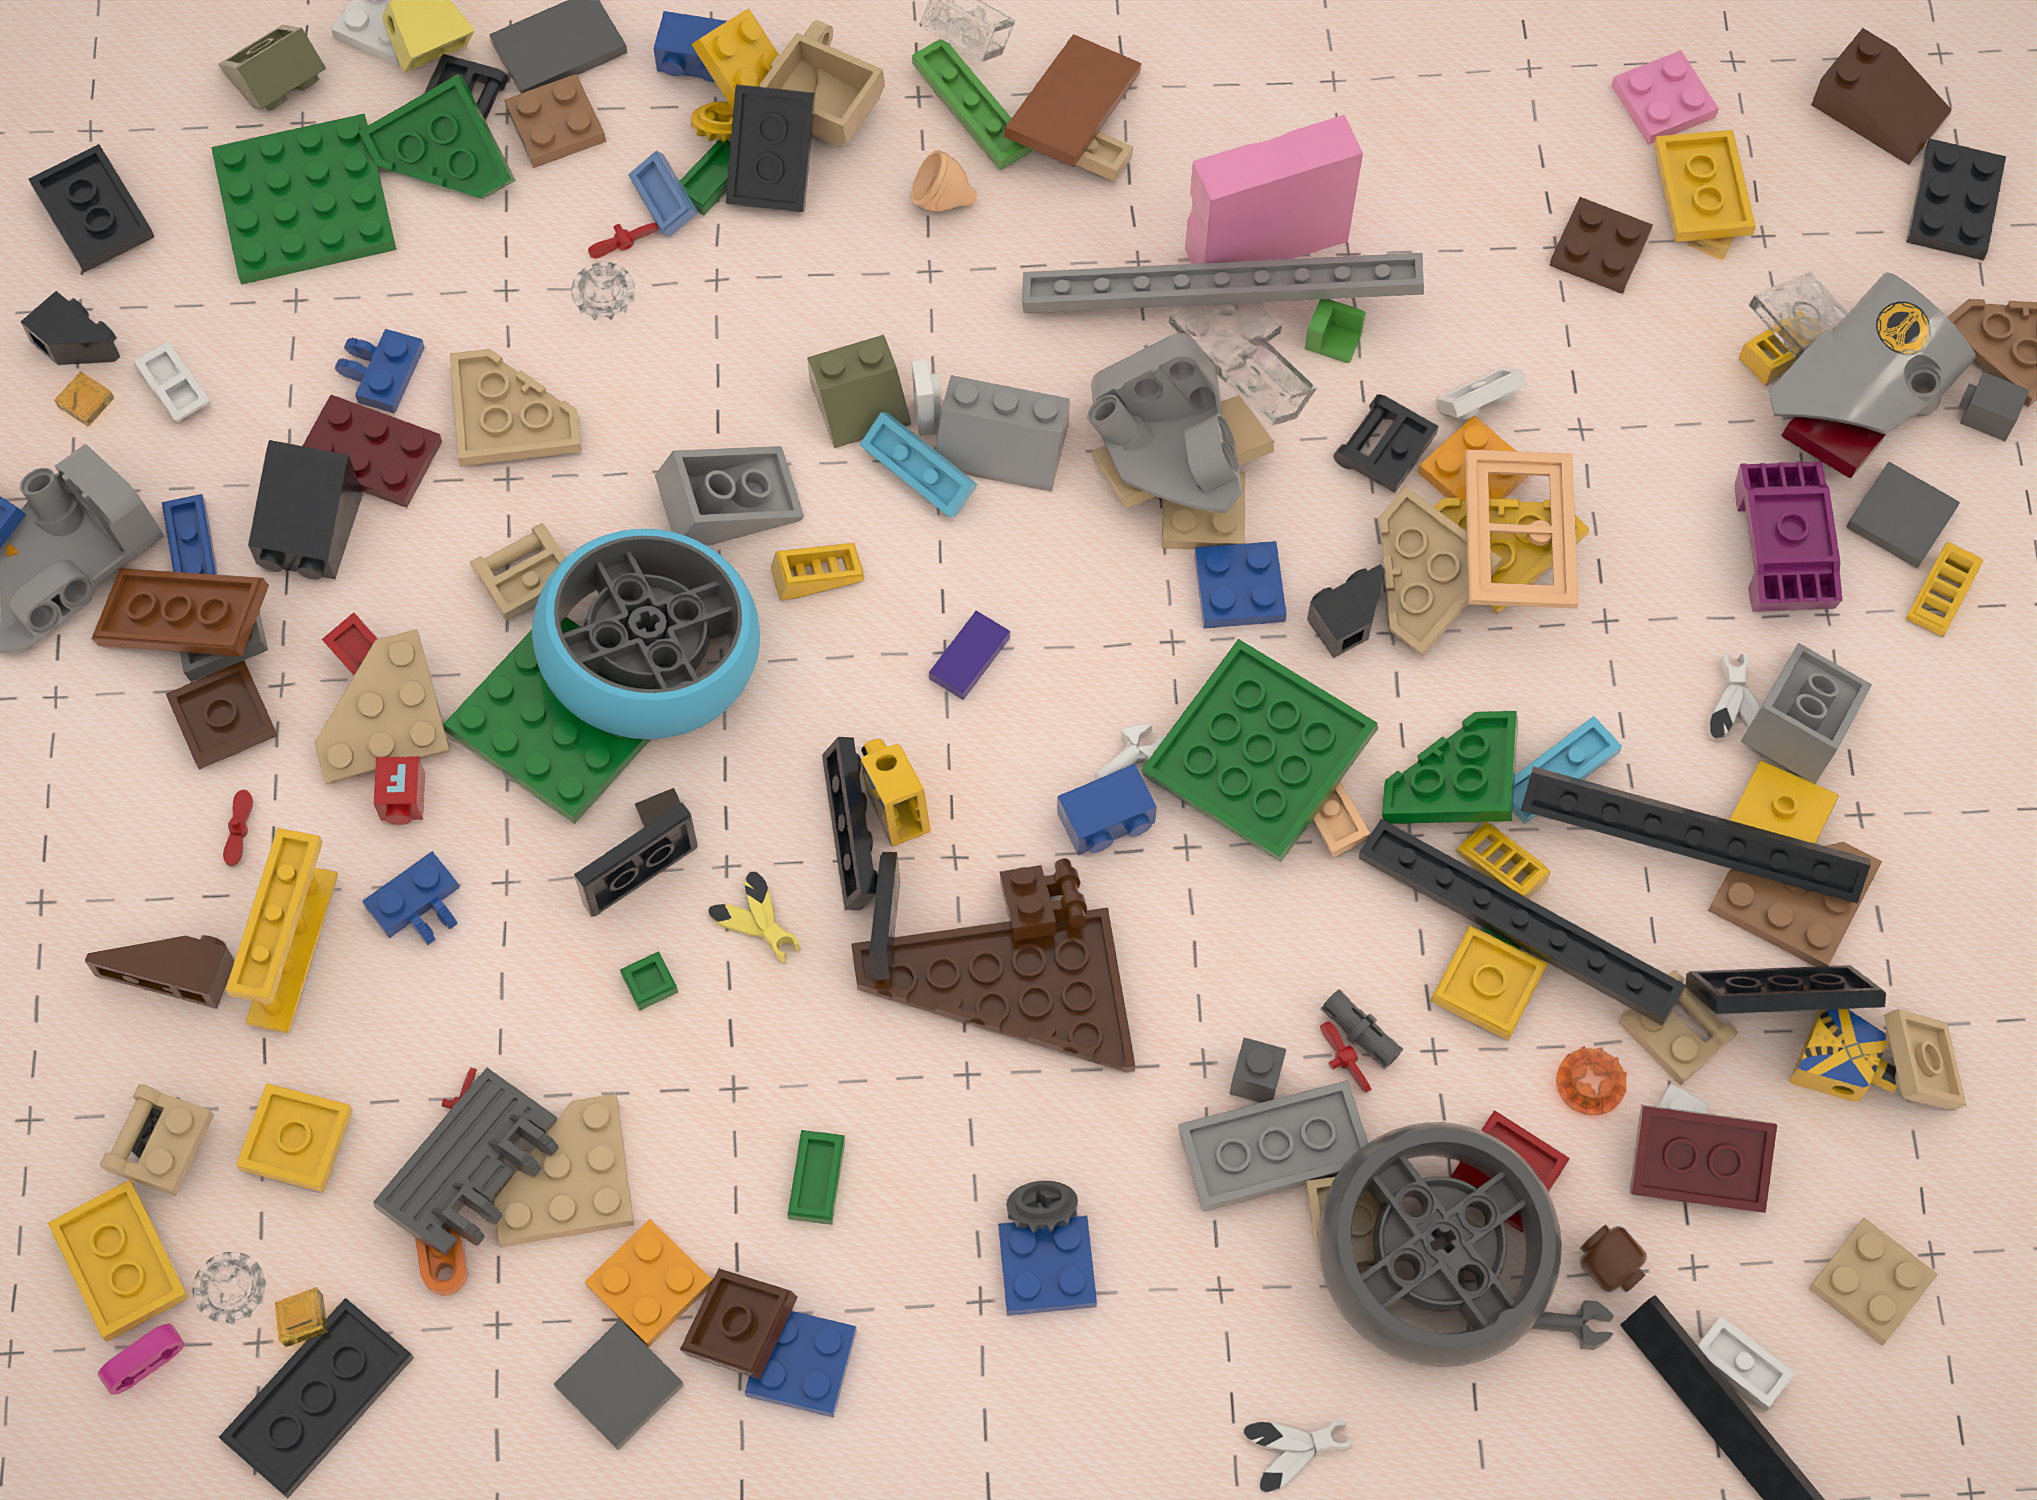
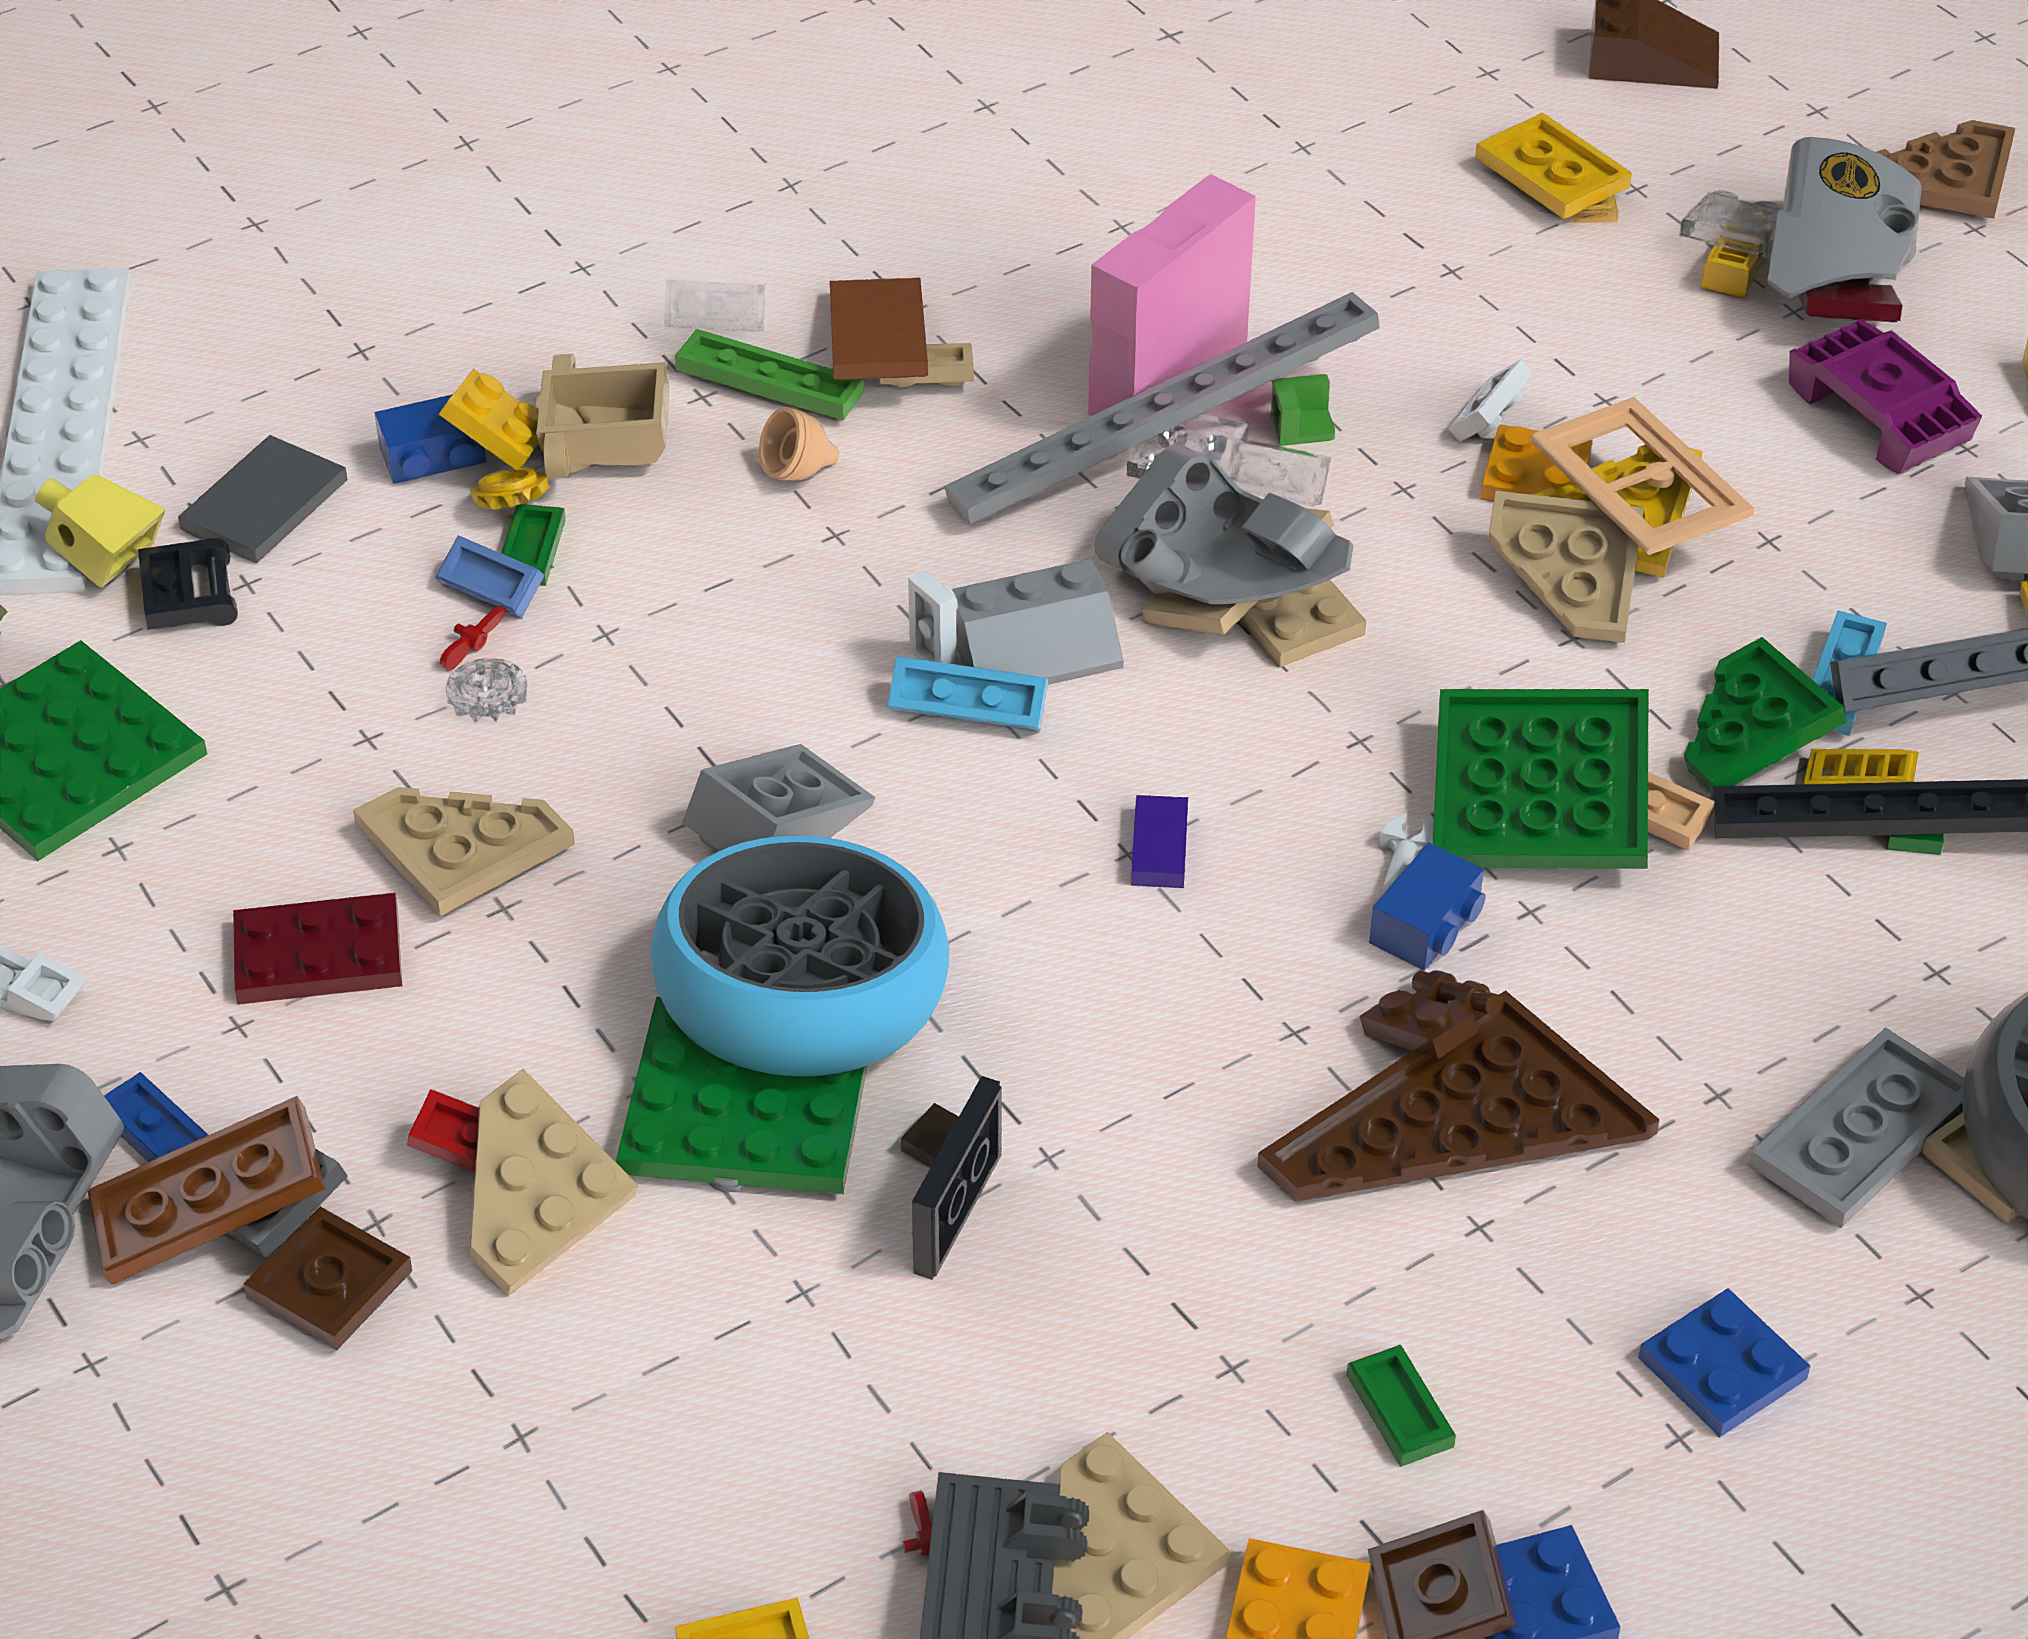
camera: 30 degrees left, 20 degrees down
(173, 967) = (461, 1565): reddish brown slope -> none
(237, 827) = (431, 1388): red piece -> none
(282, 930) = (591, 1438): yellow fence -> none
(304, 510) = (290, 1018): black slope -> none
(388, 371) = (277, 864): blue hinge -> none
(399, 789) = (610, 1248): red brick -> none
(412, 895) = (702, 1358): blue hinge -> none
(440, 142) = (197, 624): green plate -> none
(522, 584) = (606, 987): tan plate -> none
(555, 120) = (311, 565): medium nougat plate -> none
(649, 981) = (1051, 1306): green tile -> none
(758, 921) = (1128, 1188): light yellow piece -> none
(770, 148) = (589, 479): black plate -> none
(802, 584) = (925, 839): yellow slope -> none
(849, 823) = (1162, 1044): black plate -> none
(855, 387) = (844, 655): olive slope -> none
(885, 915) = (1281, 1100): black tile -> none
(892, 780) = (1191, 986): yellow torso -> none
(1057, 1198) = (1676, 1297): dark grey gear -> none
(1240, 584) = (1389, 660): blue plate -> none
(1257, 1071) = (1788, 1062): dark grey brick -> none
(1344, 1055) = (1857, 1015): red piece -> none
(1346, 614) = (1521, 632): black slope -> none
(1361, 1029) = (1855, 980): dark grey pin -> none
(1396, 450) = (1449, 477): black plate -> none
(1488, 982) = (1941, 881): yellow plate -> none
(1601, 245) = (1496, 250): reddish brown plate -> none
(1664, 97) = (1451, 118): bright pink plate -> none
(1734, 700) = (1950, 550): white piece -> none
(1903, 514) = (1965, 340): dark grey tile -> none
(1956, 199) = (1785, 94): black plate -> none
(1992, 406) = (1967, 224): dark grey brick -> none

